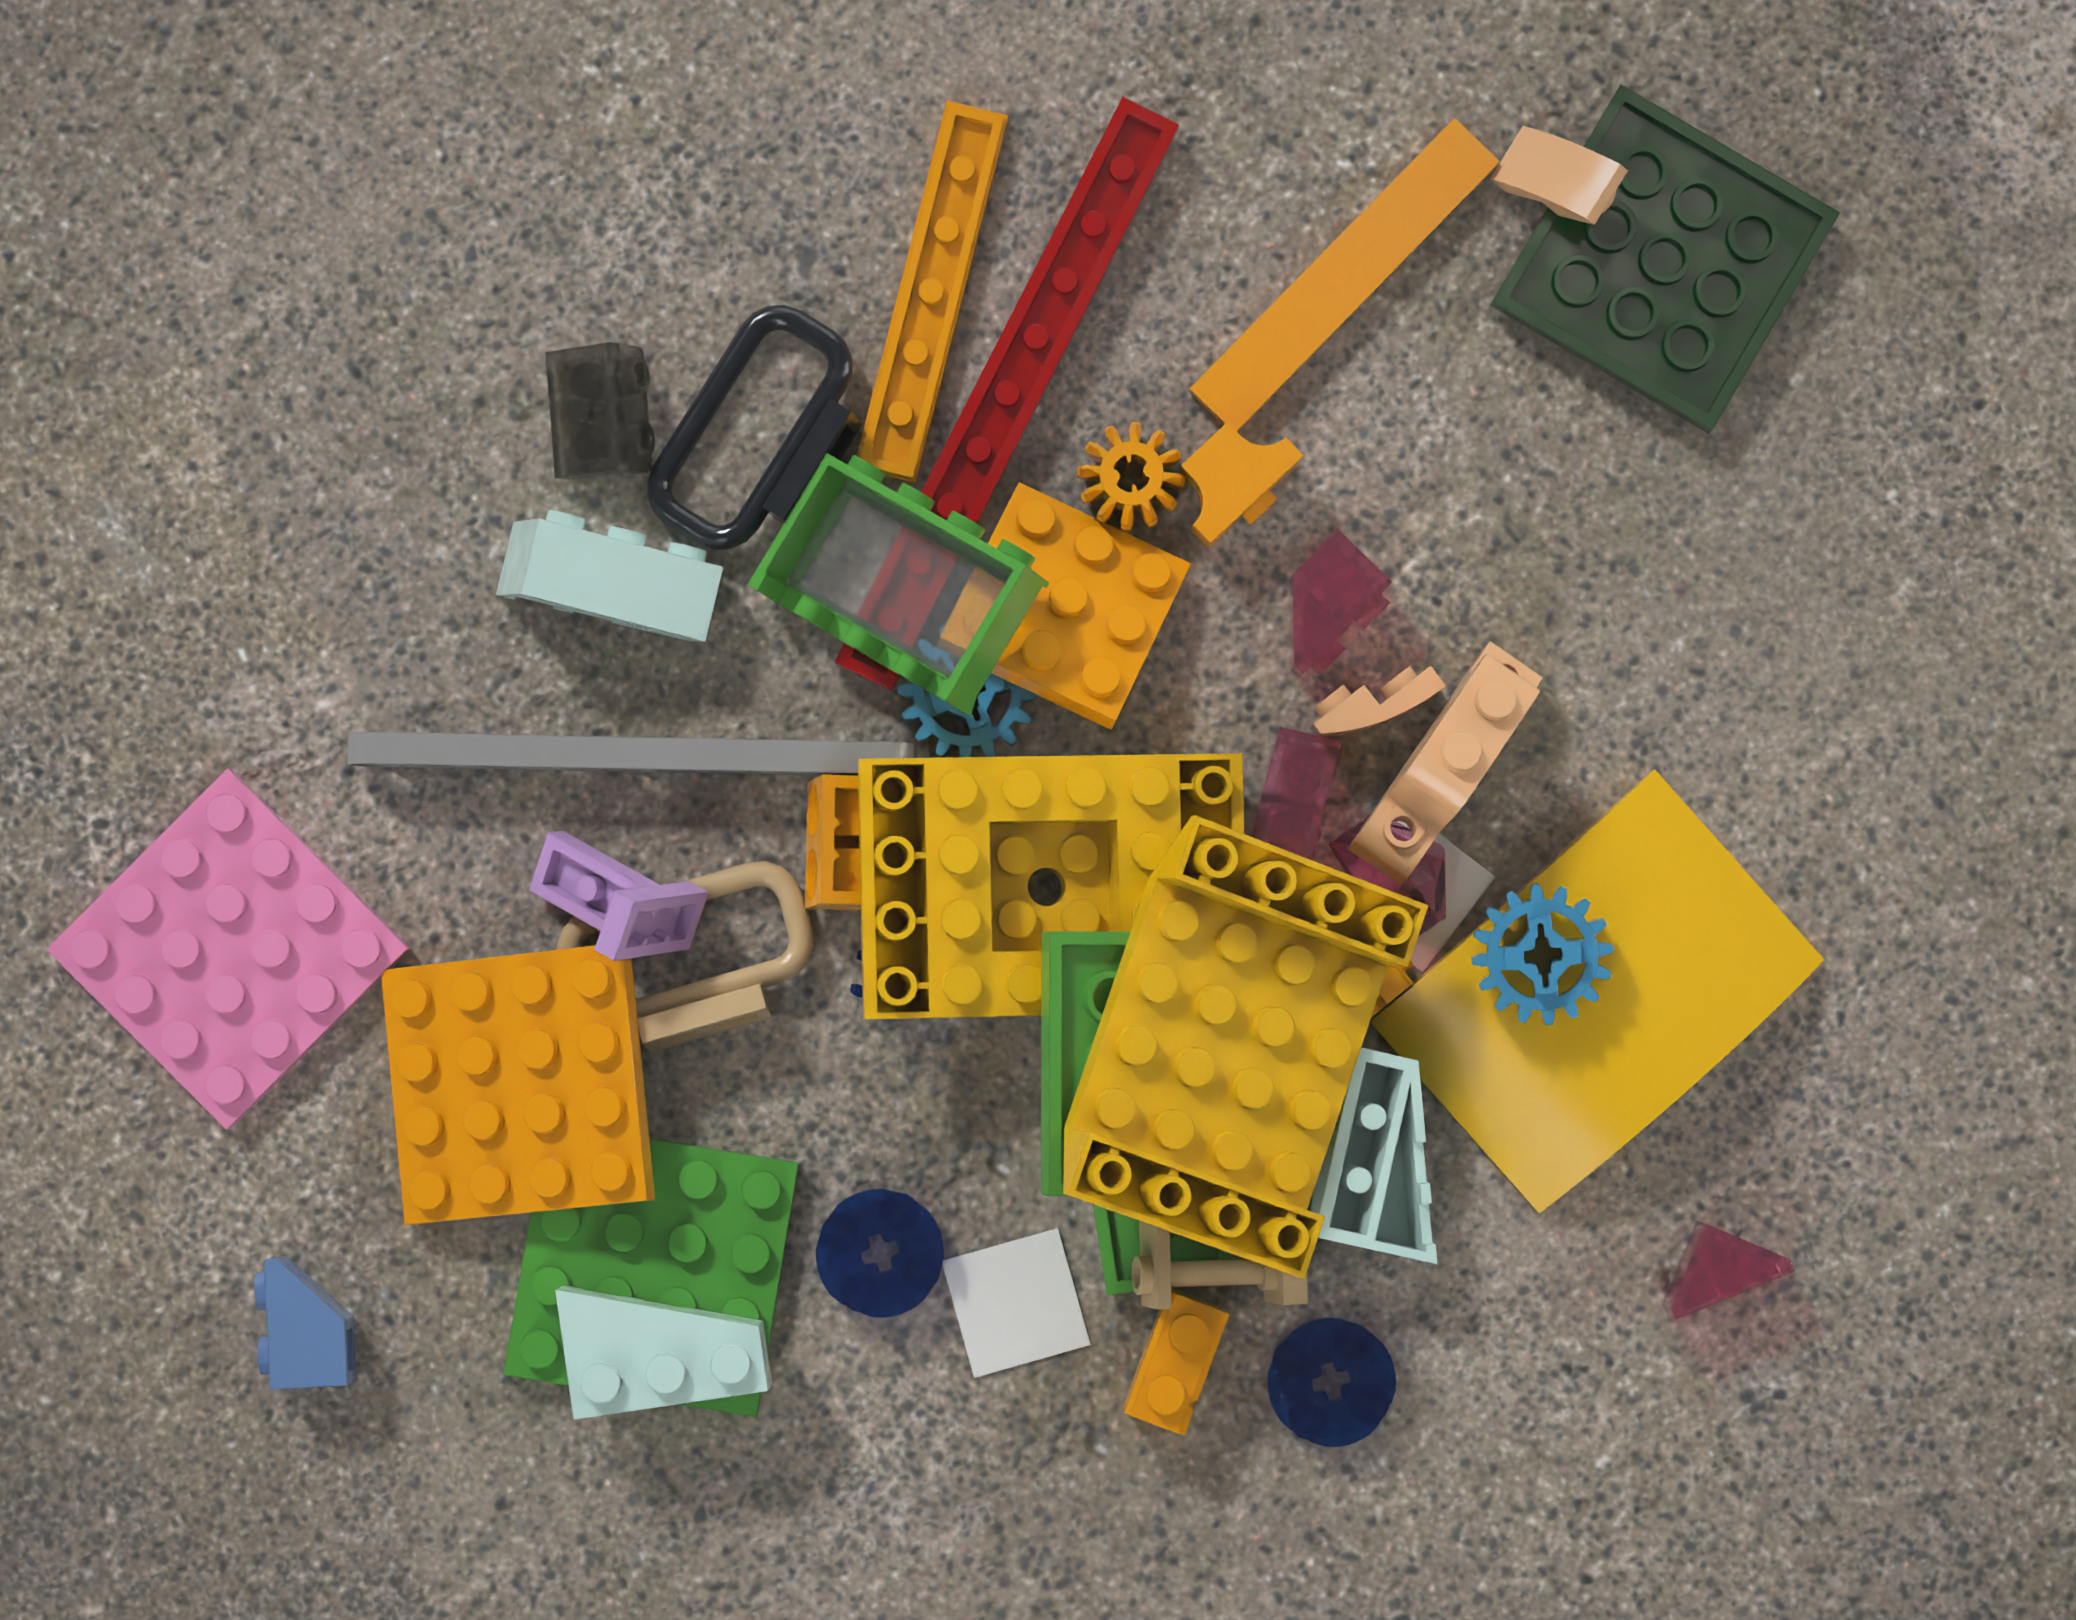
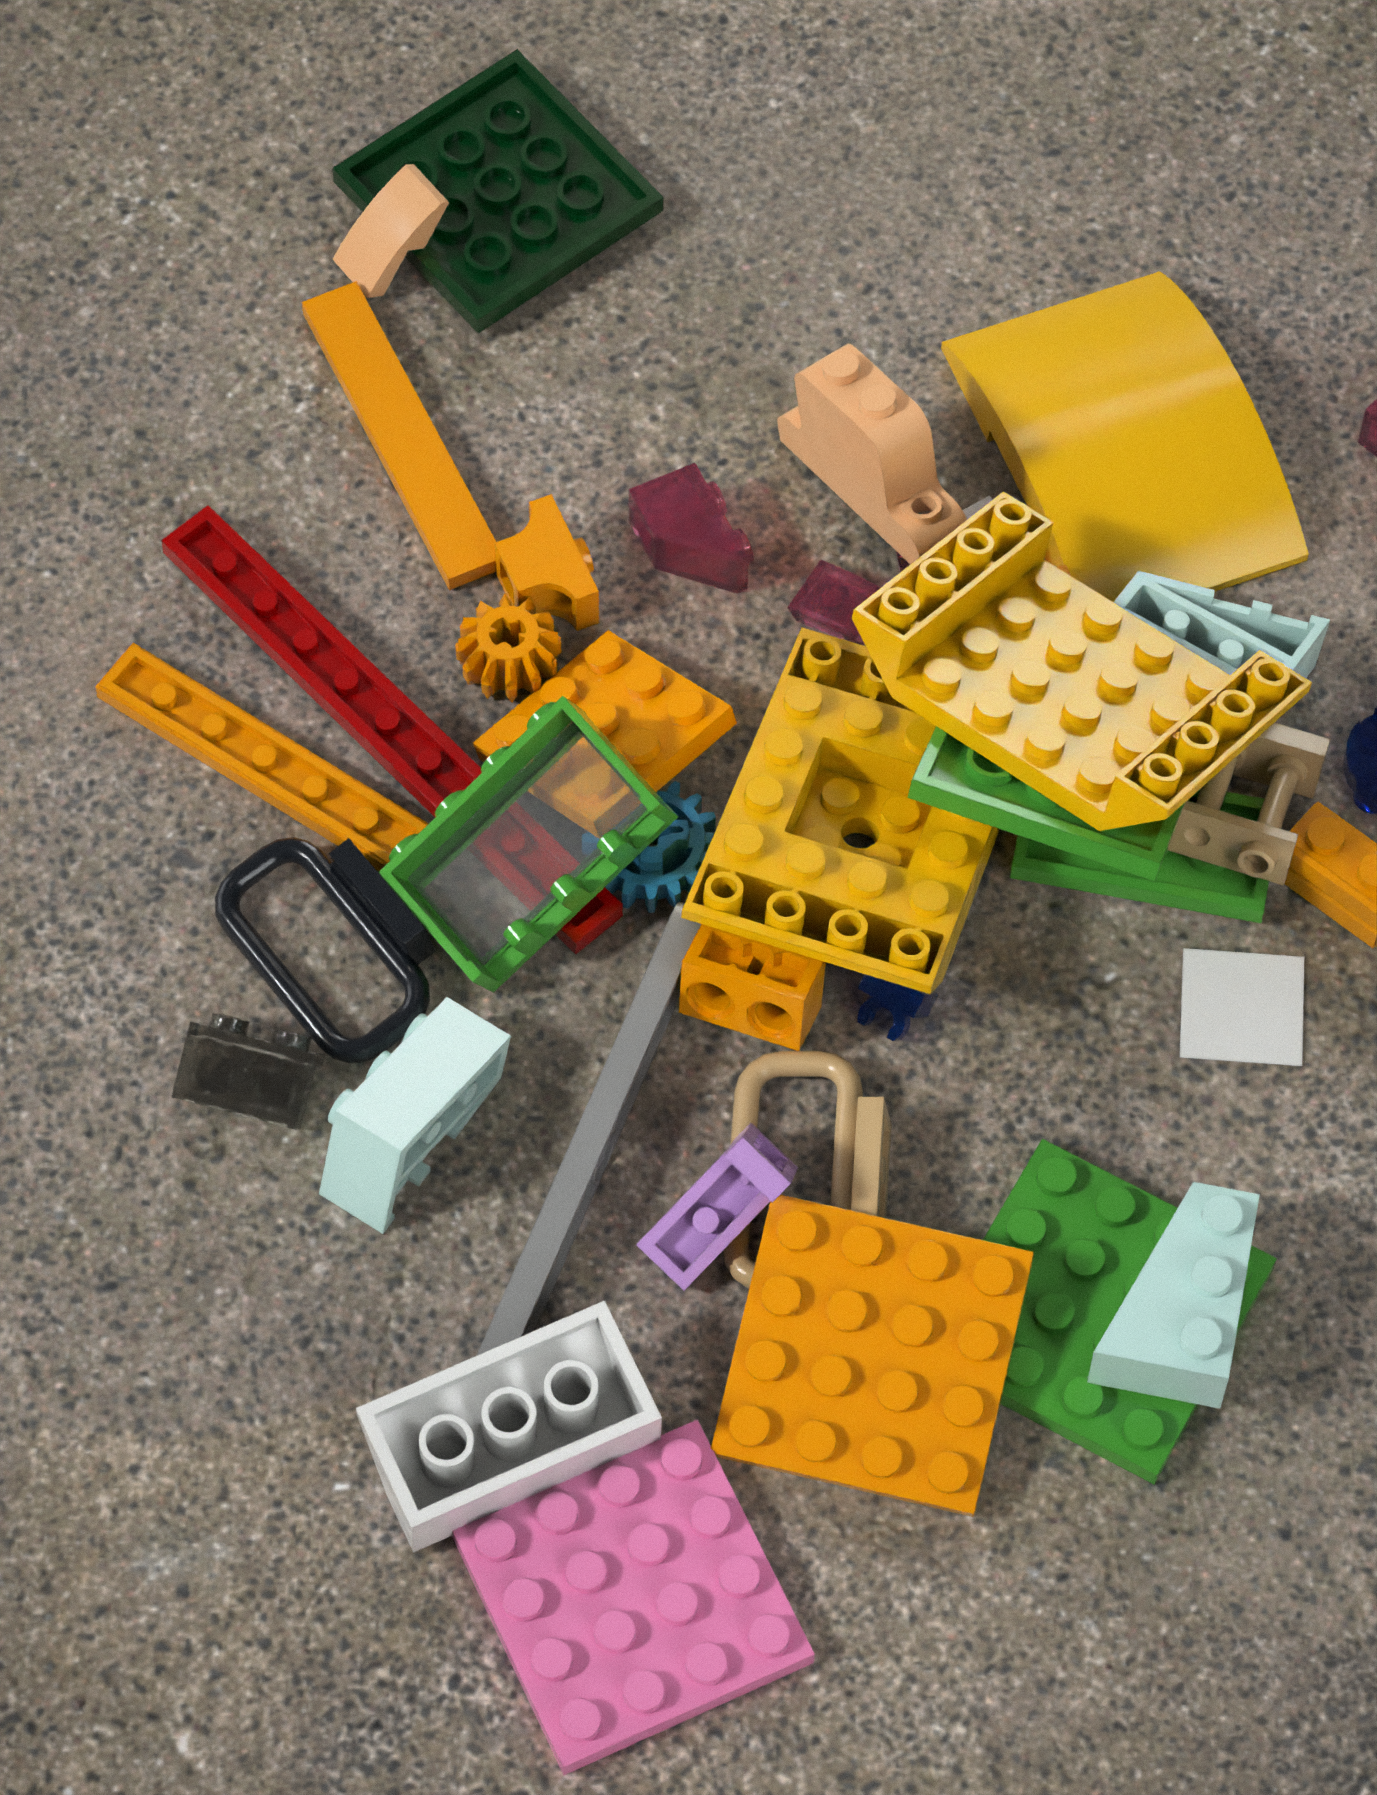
camera: 70 degrees left, 25 degrees down
(307, 1330) = (1045, 1643): medium blue slope -> none
(322, 788) = (508, 1424): none -> white slope
(863, 1285) = (1148, 1132): clear blue plate -> none
(1354, 712) = (797, 522): light nougat slope -> none
(1572, 952) = (1071, 463): dark azure gear -> none

